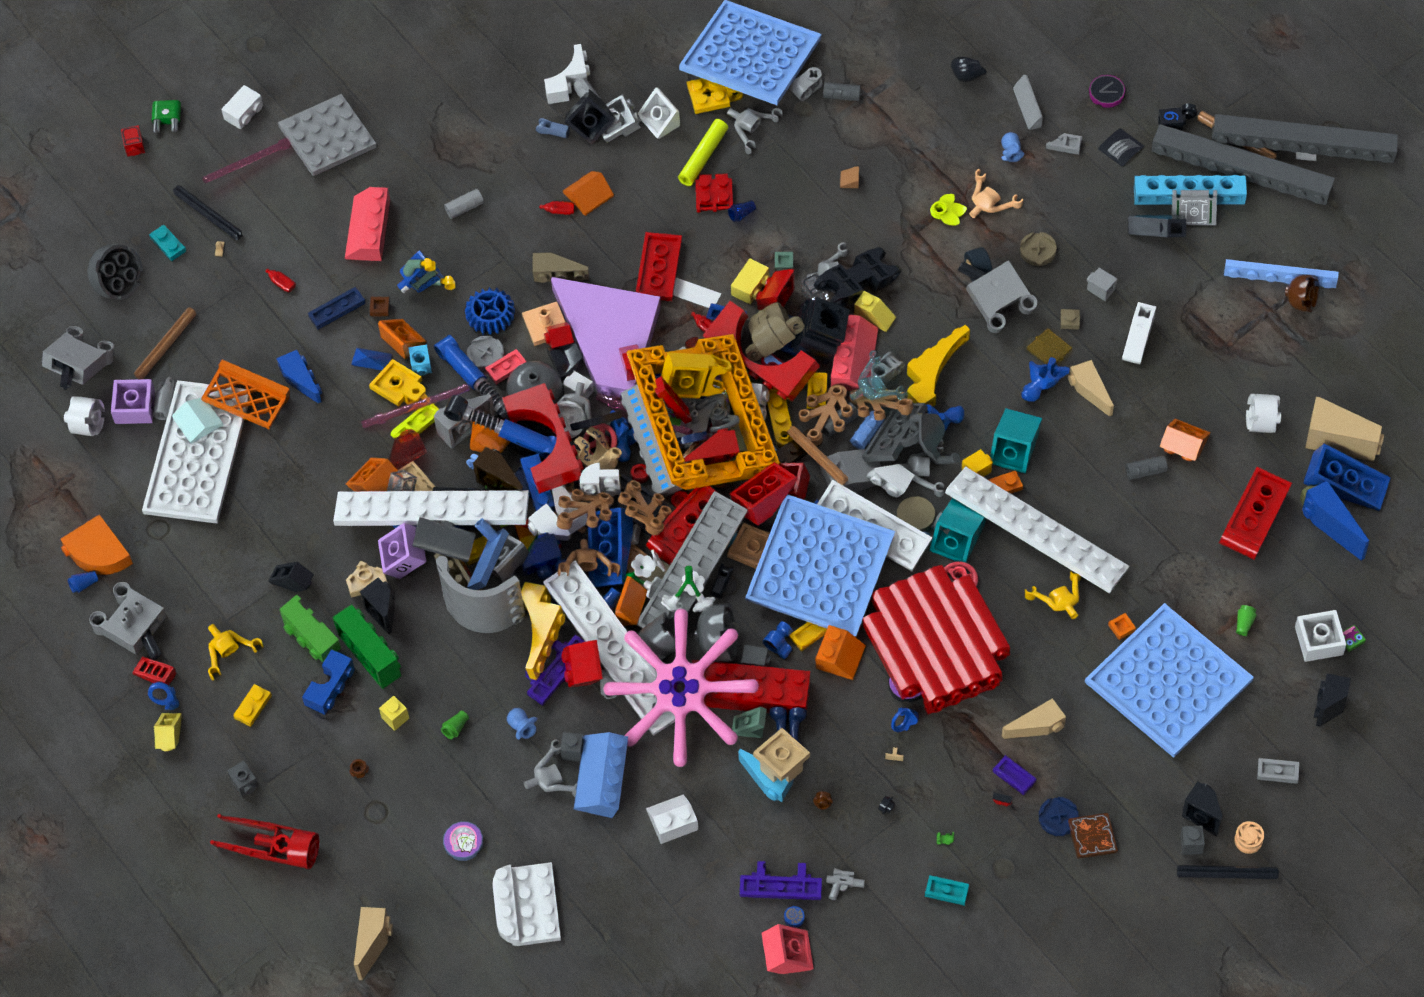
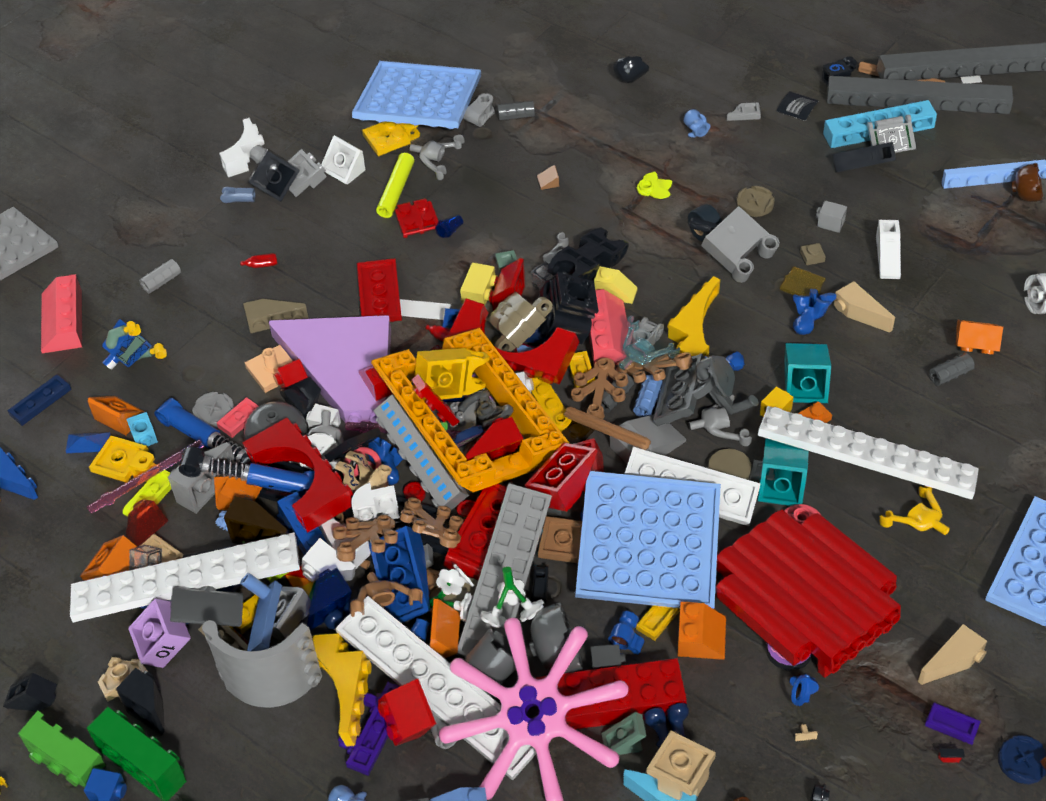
camera: 15 degrees left, 10 degrees down
(379, 306) = (87, 388): reddish brown plate -> none
(491, 317) = (211, 372): blue gear -> none
(589, 192) = (289, 241): orange slope -> none
(891, 478) = (693, 436): white slope -> none
(988, 198) = (690, 168): light nougat piece -> none
(1028, 103) = (697, 86): light grey slope -> none
(1107, 91) = (765, 64): black tile -> none
(1122, 626) = (999, 531): orange plate -> none

